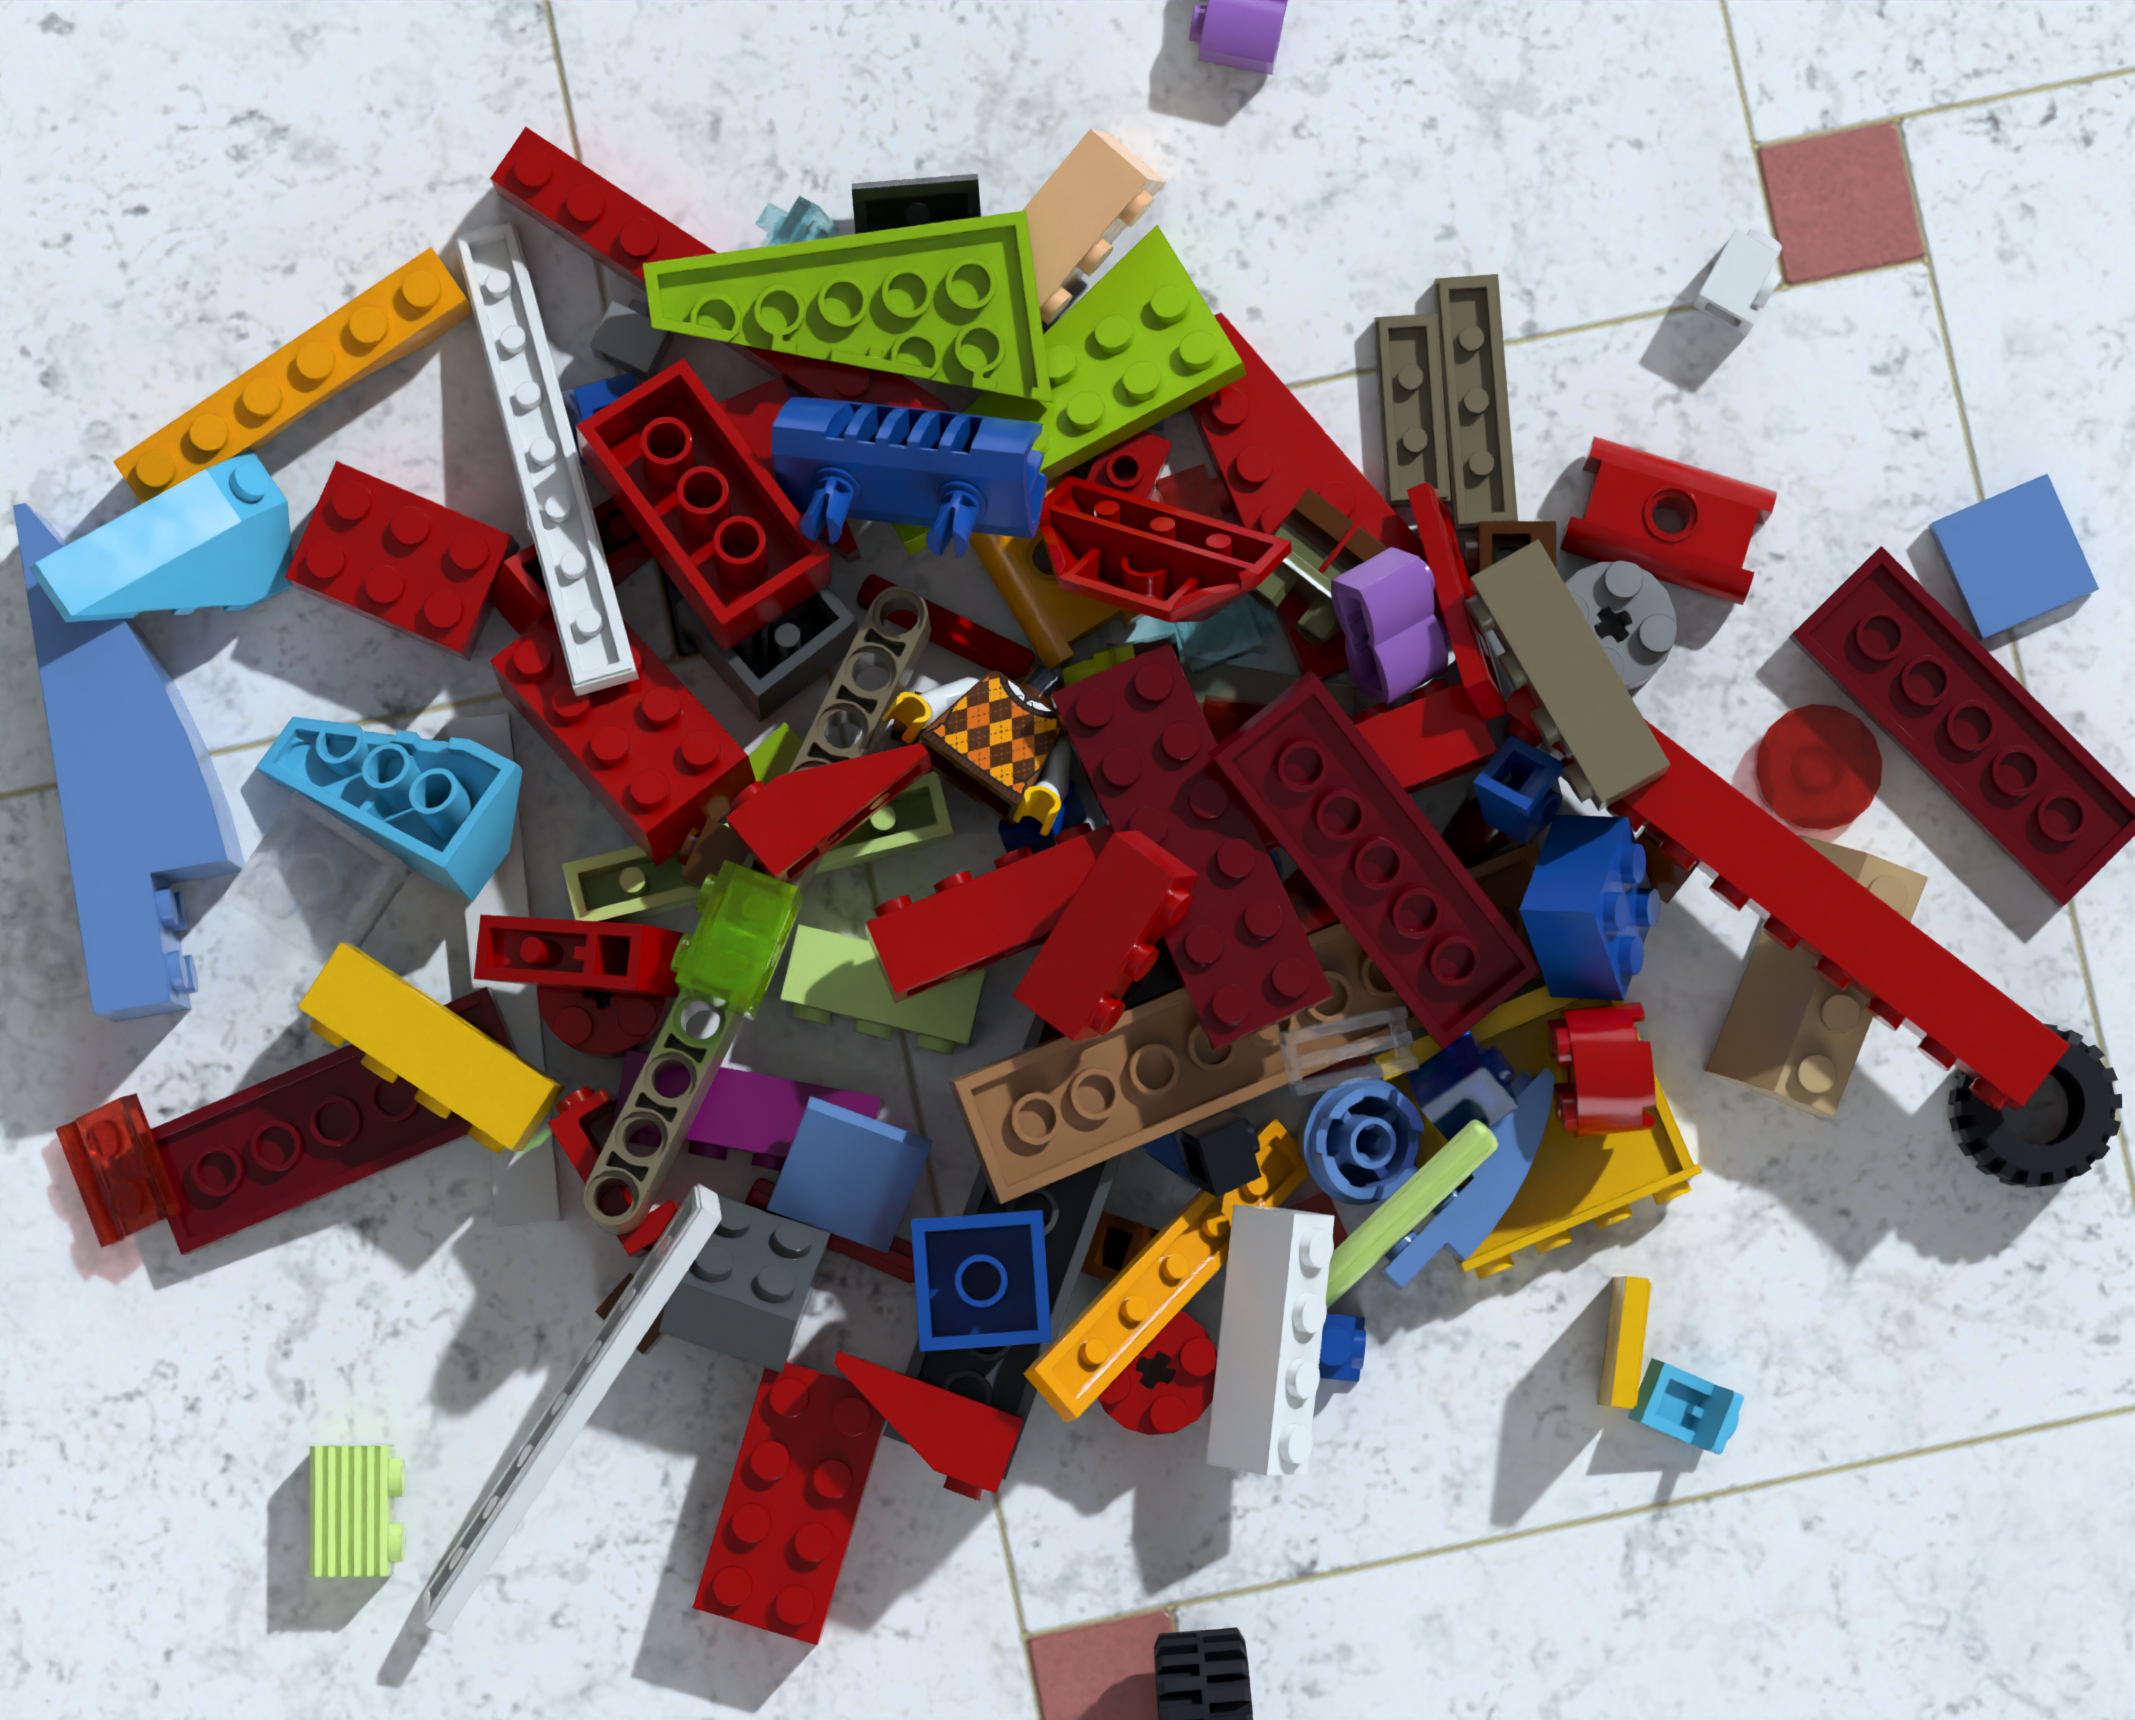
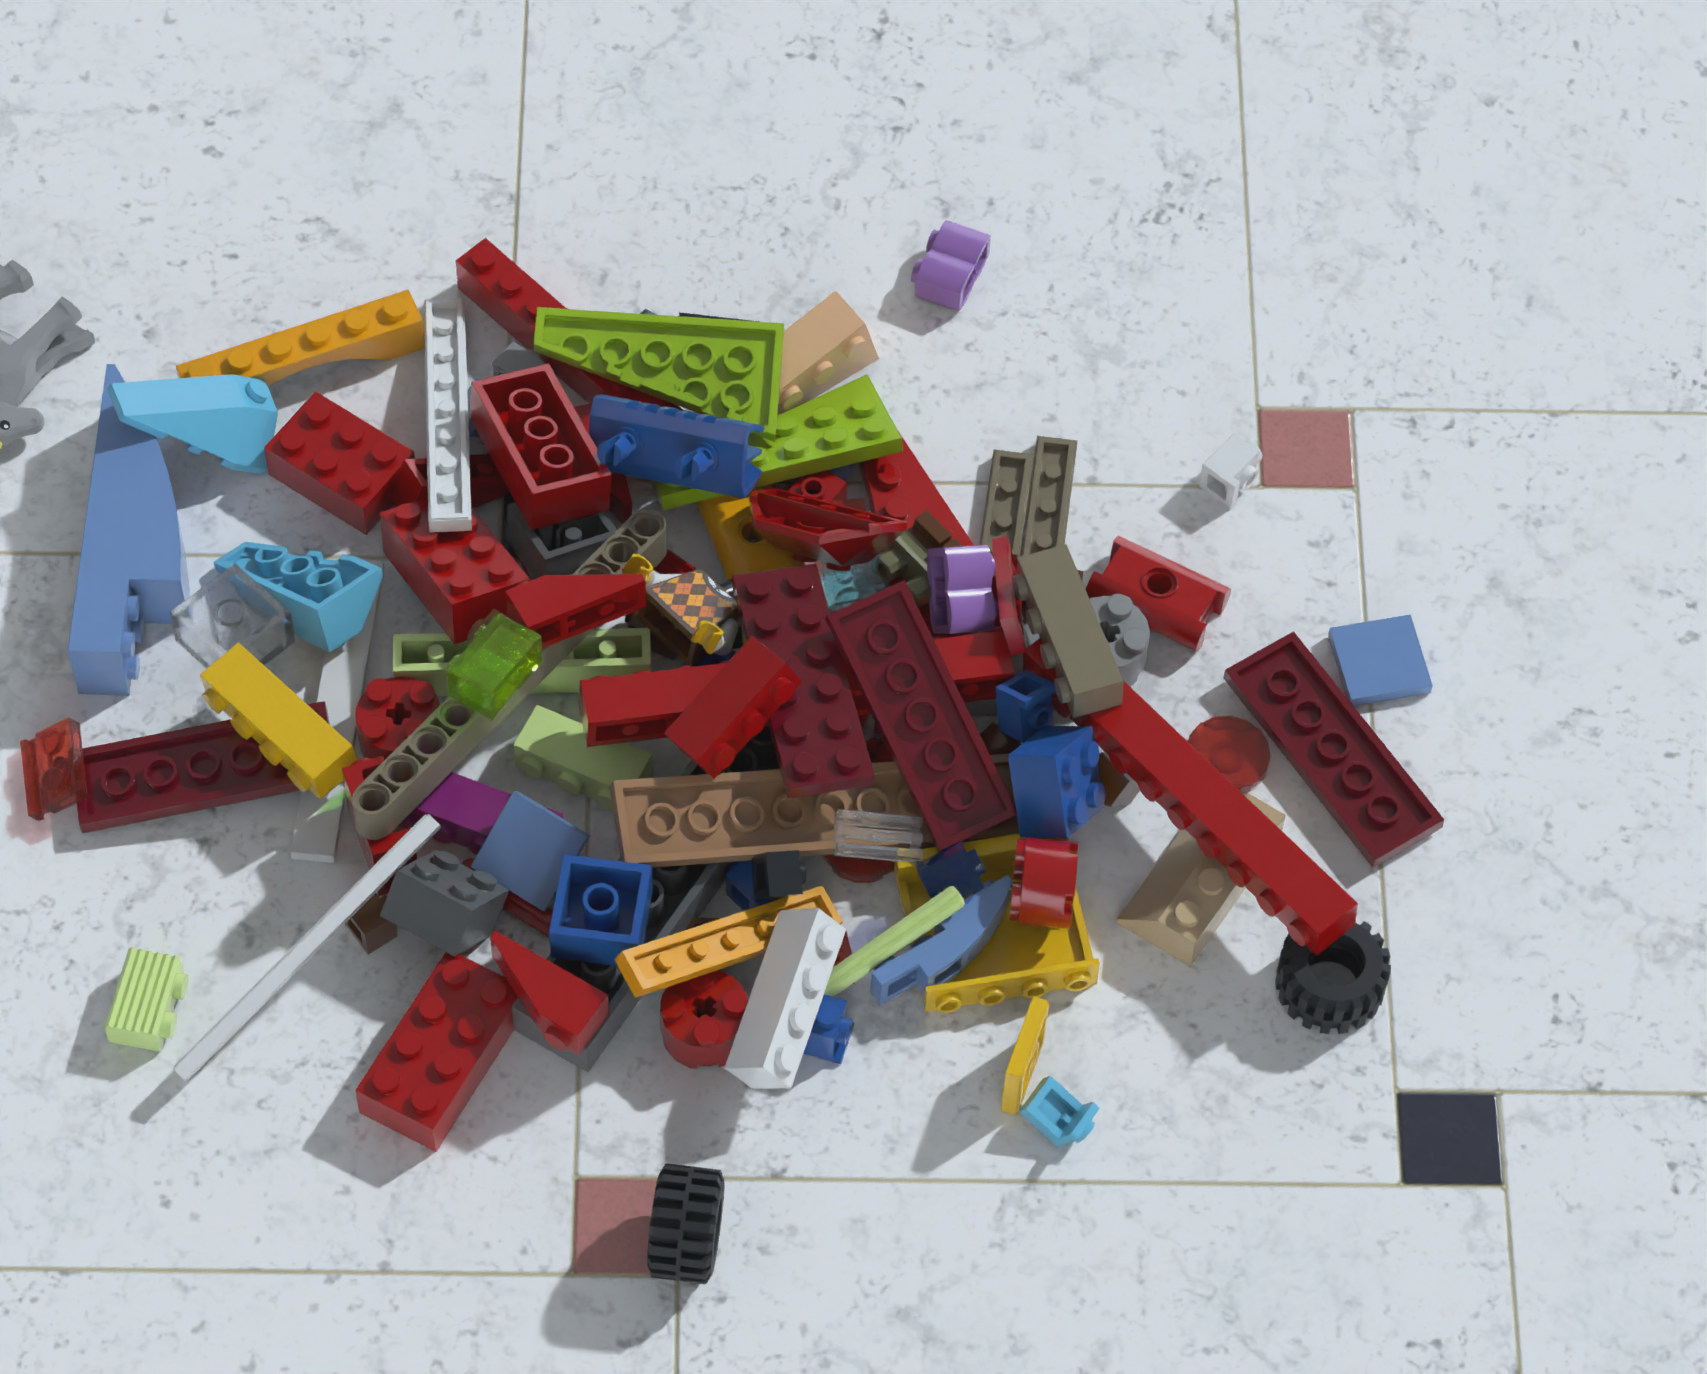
camera: 10 degrees right, 25 degrees down
(577, 955) = (391, 678): red slope -> none
(1360, 1141) = (873, 897): medium blue cone -> none

